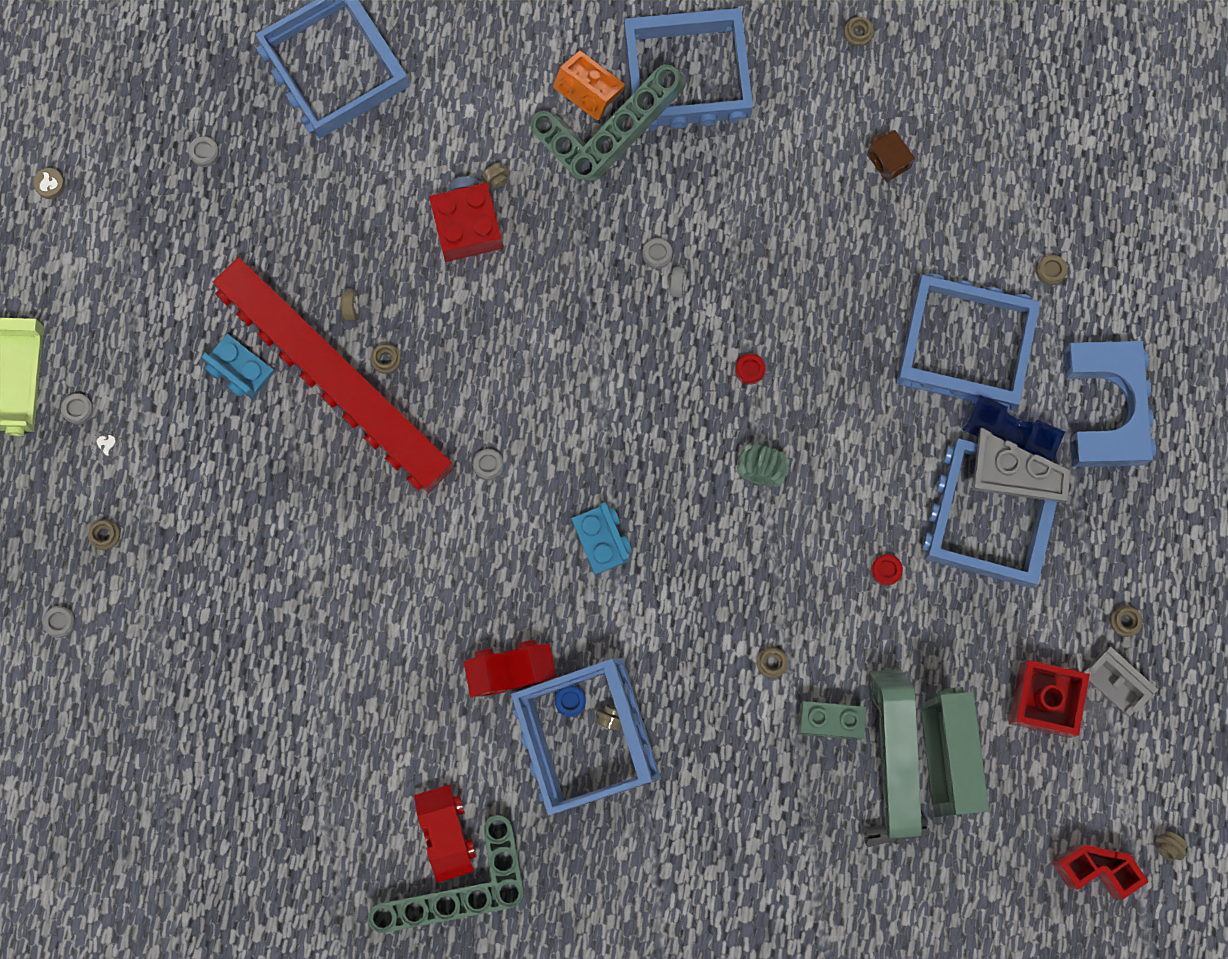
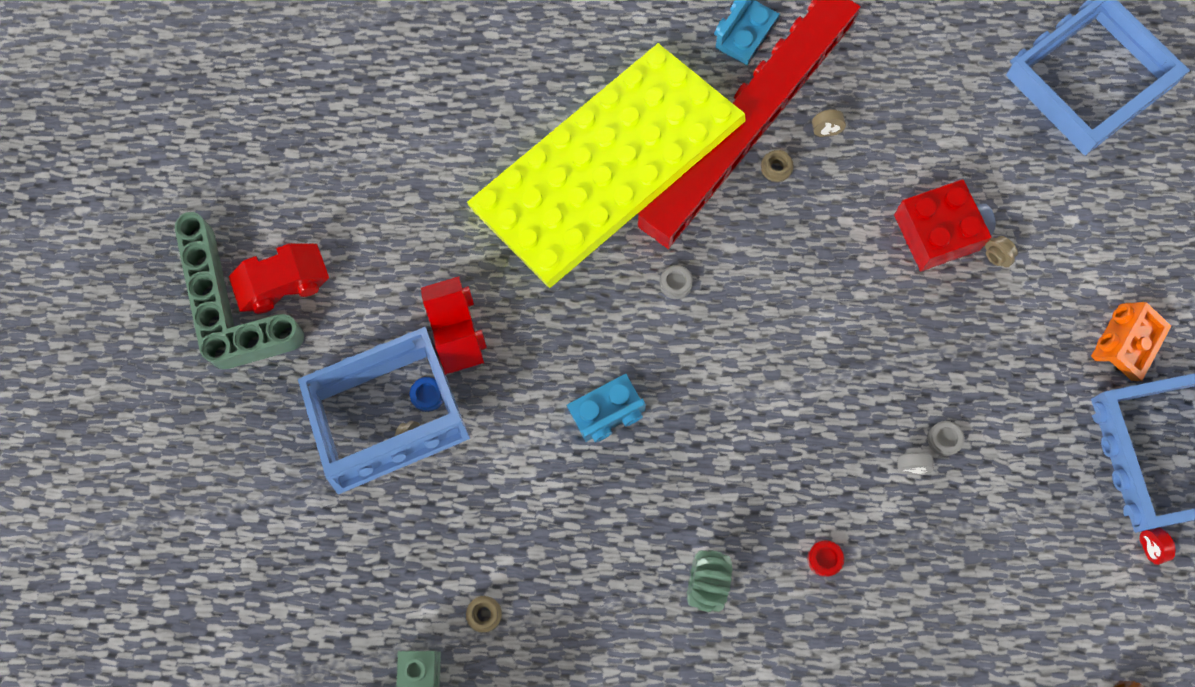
camera: 90 degrees right, 5 degrees down
(365, 514) = (605, 163): none -> neon yellow plate
(611, 129) = (1085, 366): sand green beam -> none
(765, 102) = (1158, 545): none -> red tile

